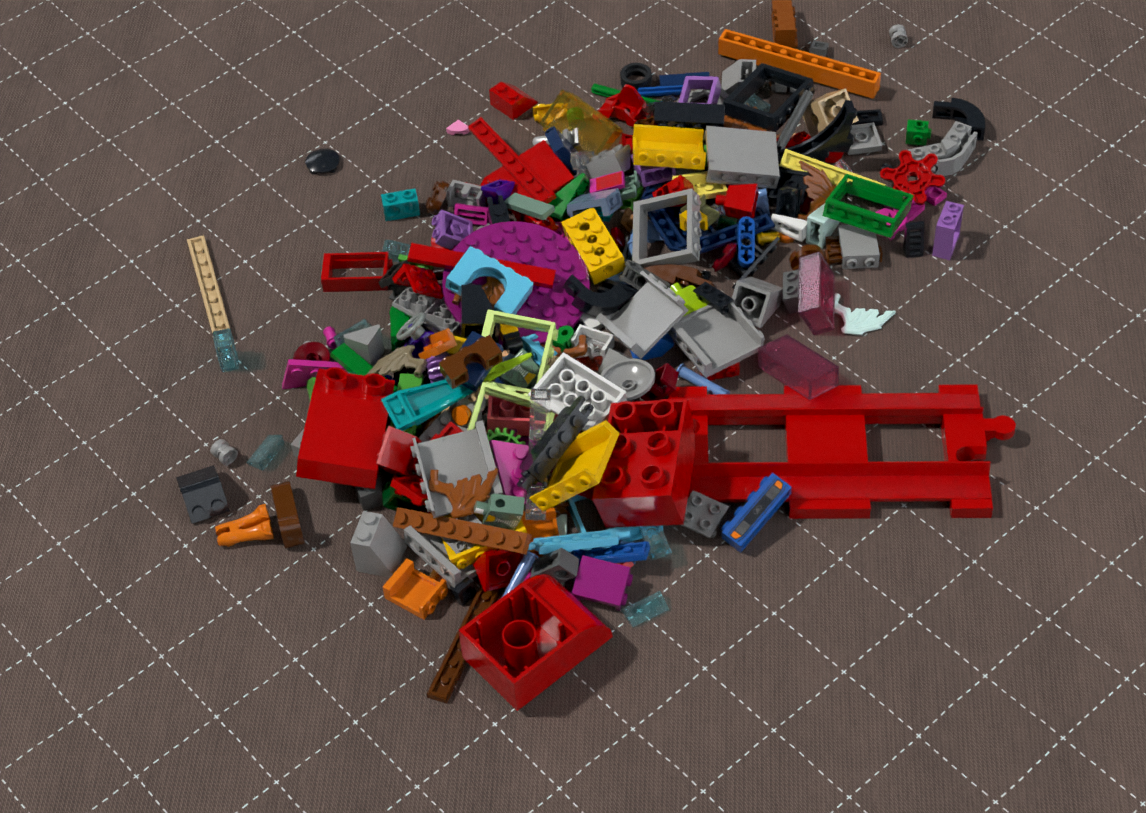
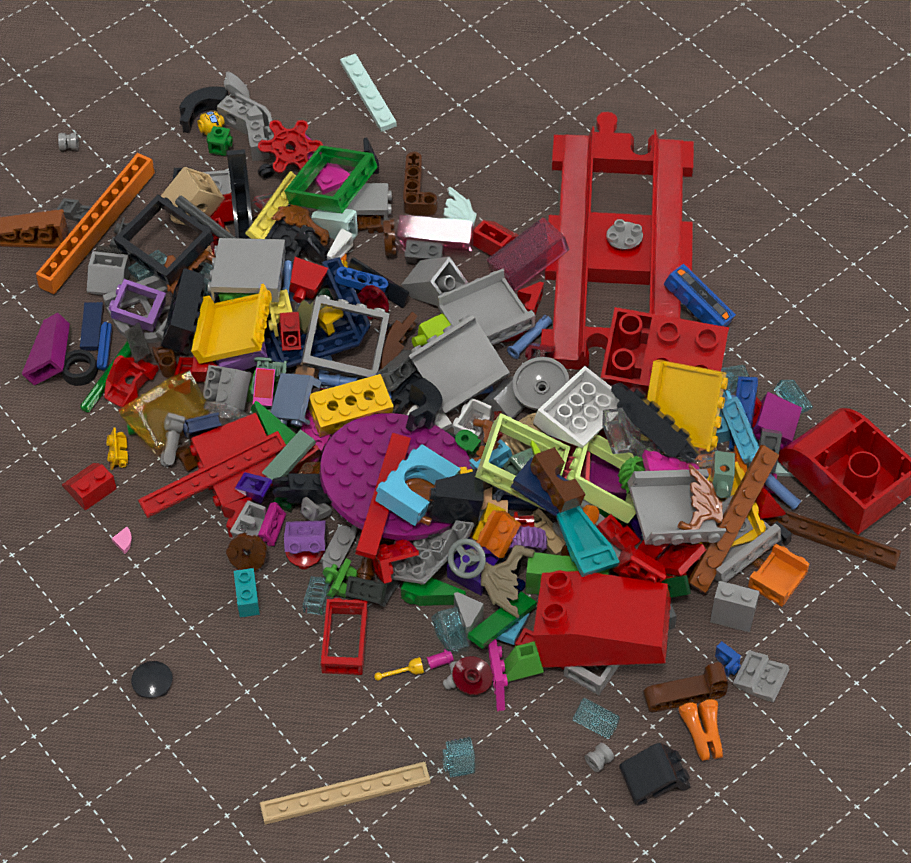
camera: 90 degrees left, 5 degrees up
(303, 577) = (761, 676): none -> light grey slope
(321, 548) = (728, 657): none -> blue bracket
(323, 321) = (414, 666): none -> yellow hinge
(651, 53) = (48, 350): none -> magenta slope
(712, 295) = (445, 303): black hinge -> none
(751, 382) = (531, 296): none -> red slope
(827, 341) = (491, 236): none -> red slope
(831, 440) = (624, 234): none -> light grey dish
(887, 279) = (414, 201): none -> reddish brown beam
(939, 124) = (209, 120): none -> yellow head
(948, 230) = (374, 119): medium lavender window -> none
(986, 135) = (235, 85): none -> light grey slope
(1014, 238) = (368, 92): none -> light aqua plate

